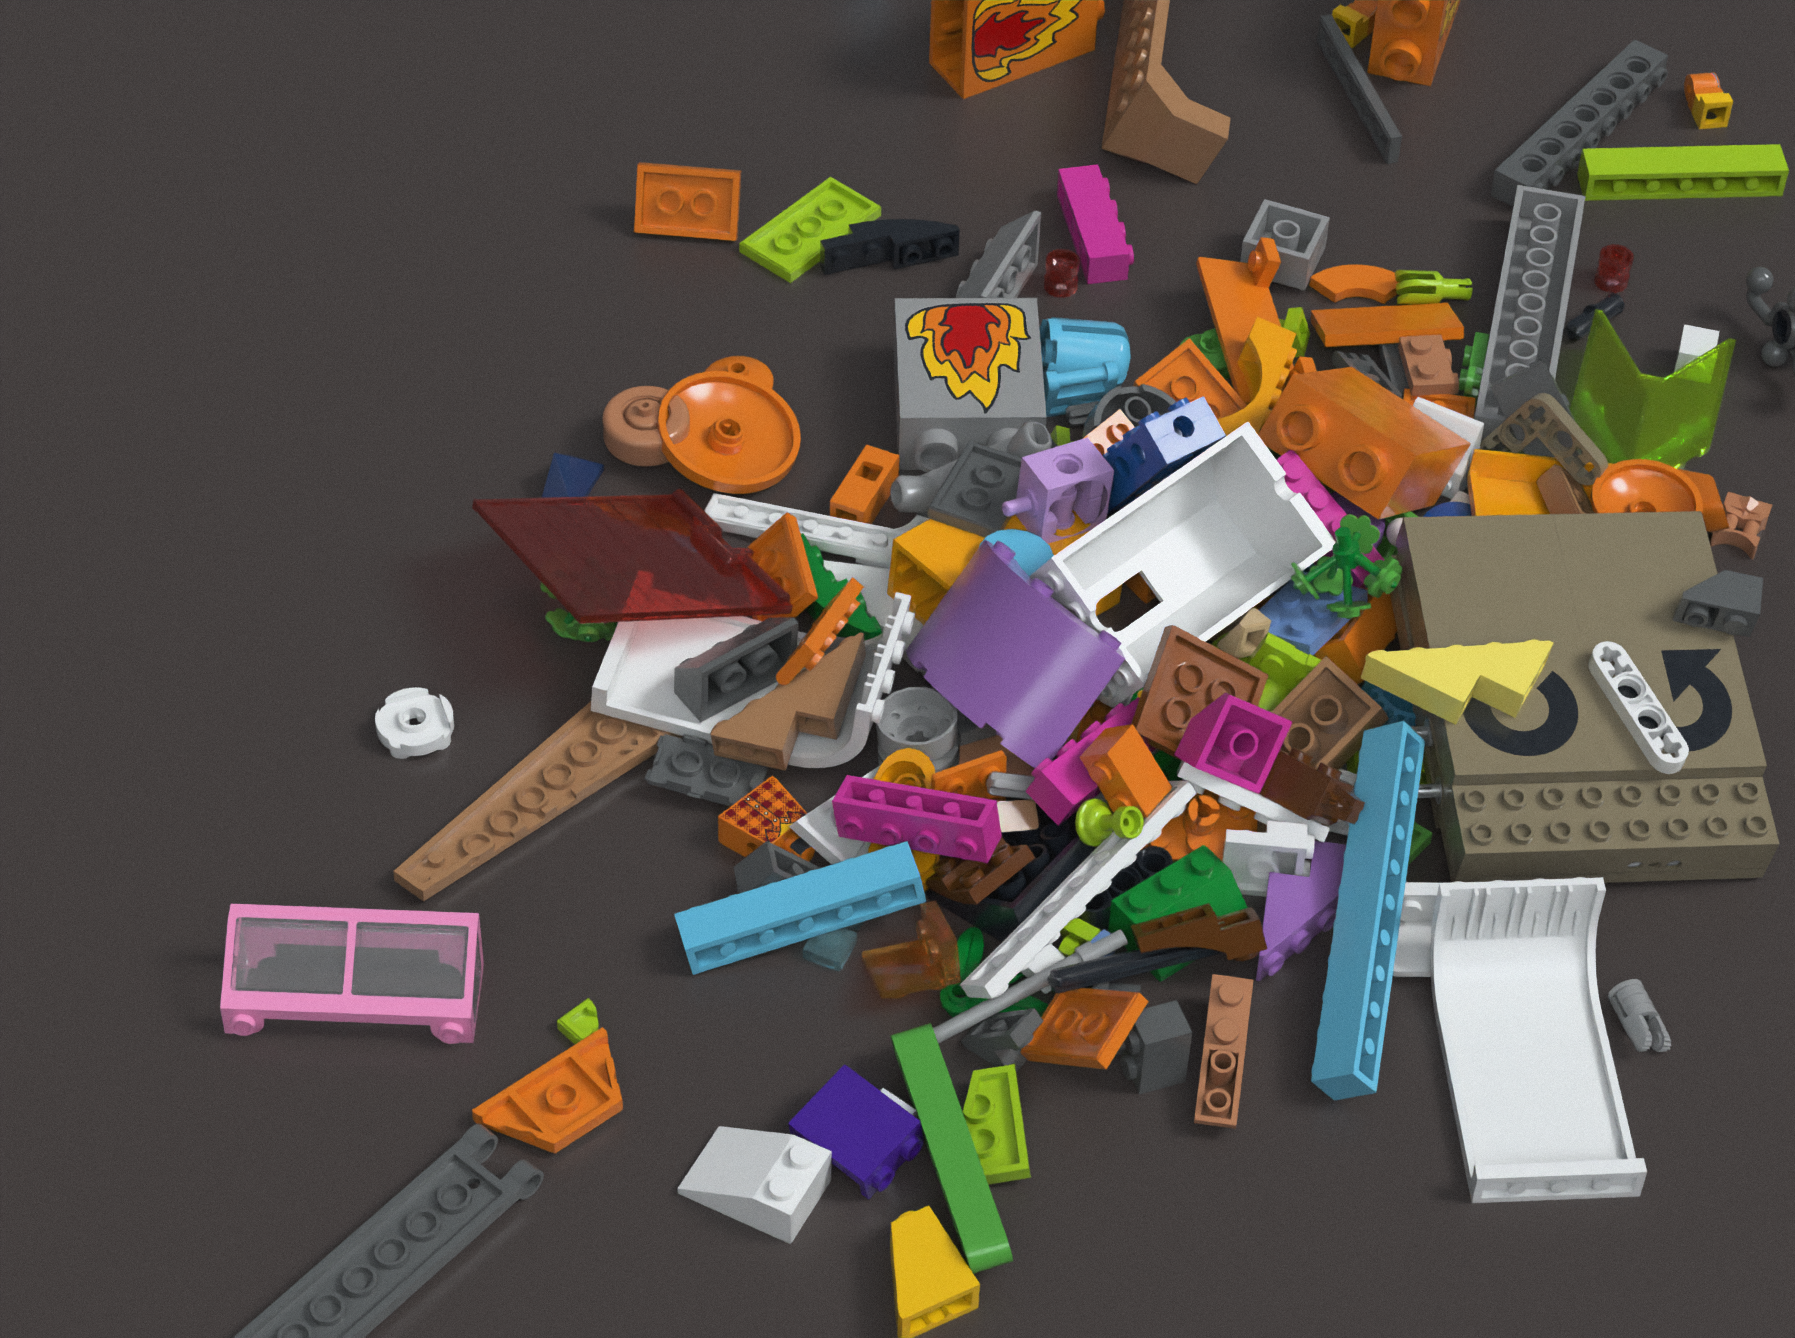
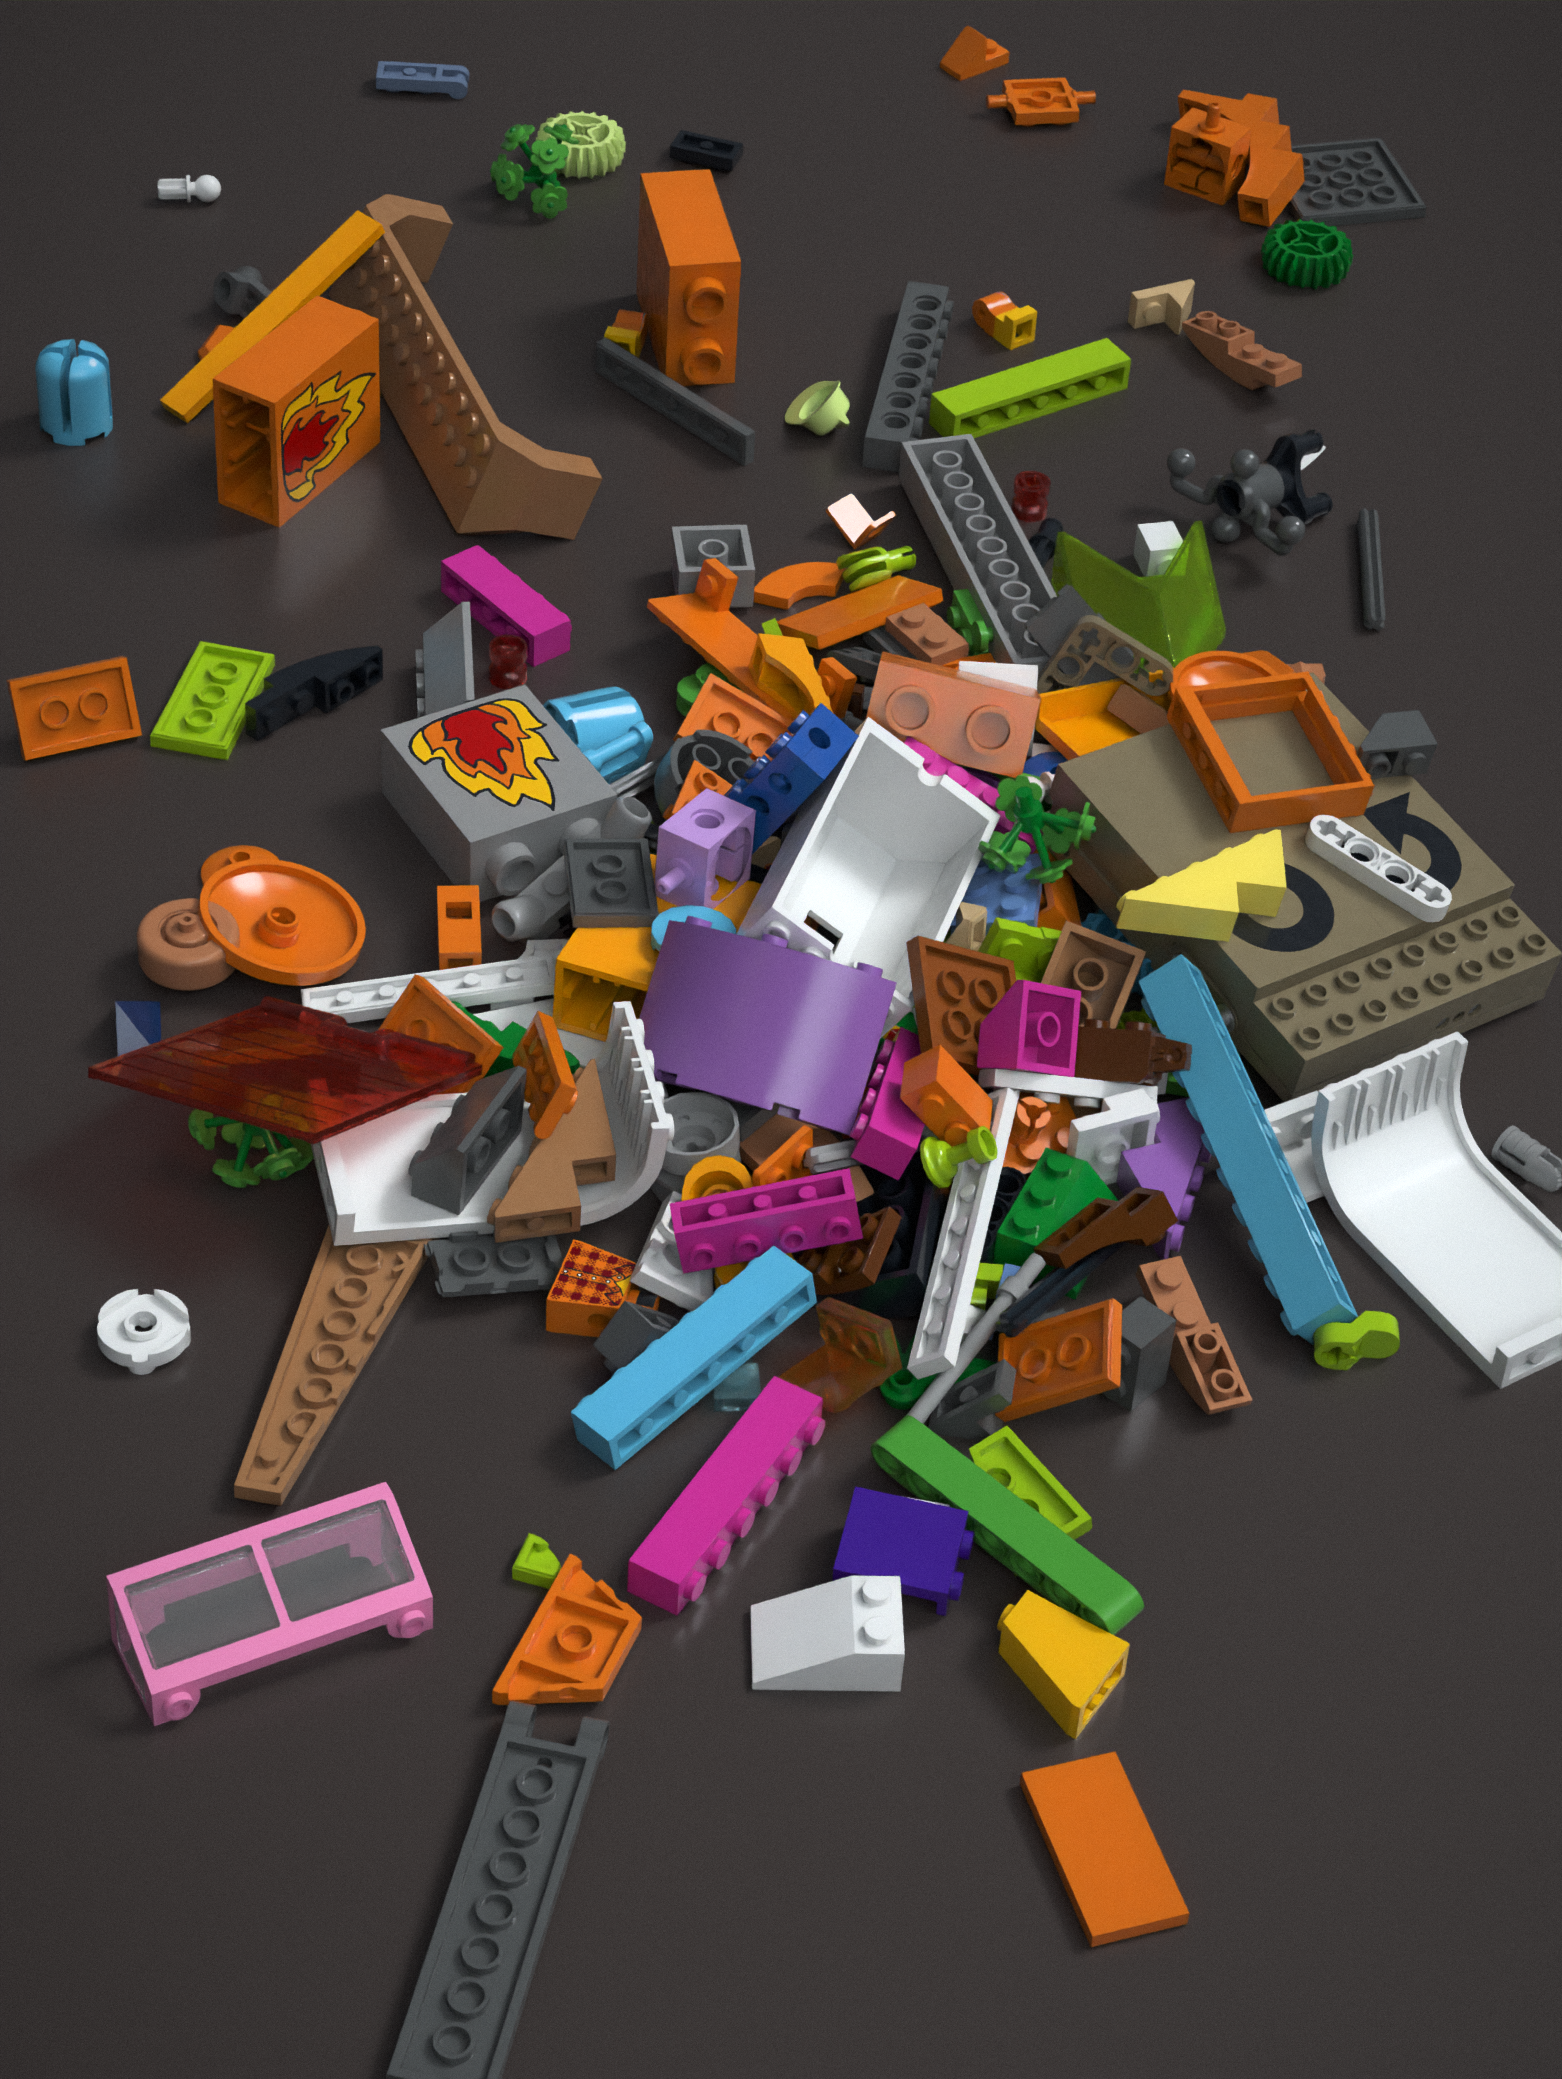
camera: 30 degrees left, 5 degrees down
(756, 1029) = (725, 1496): none -> dark pink brick
(1372, 1110) = (1344, 1344): none -> lime piece
(1442, 242) = (855, 522): none -> bracket
(1479, 133) = (820, 408): none -> yellowish green piece
(1611, 515) = (1199, 704): none -> orange window

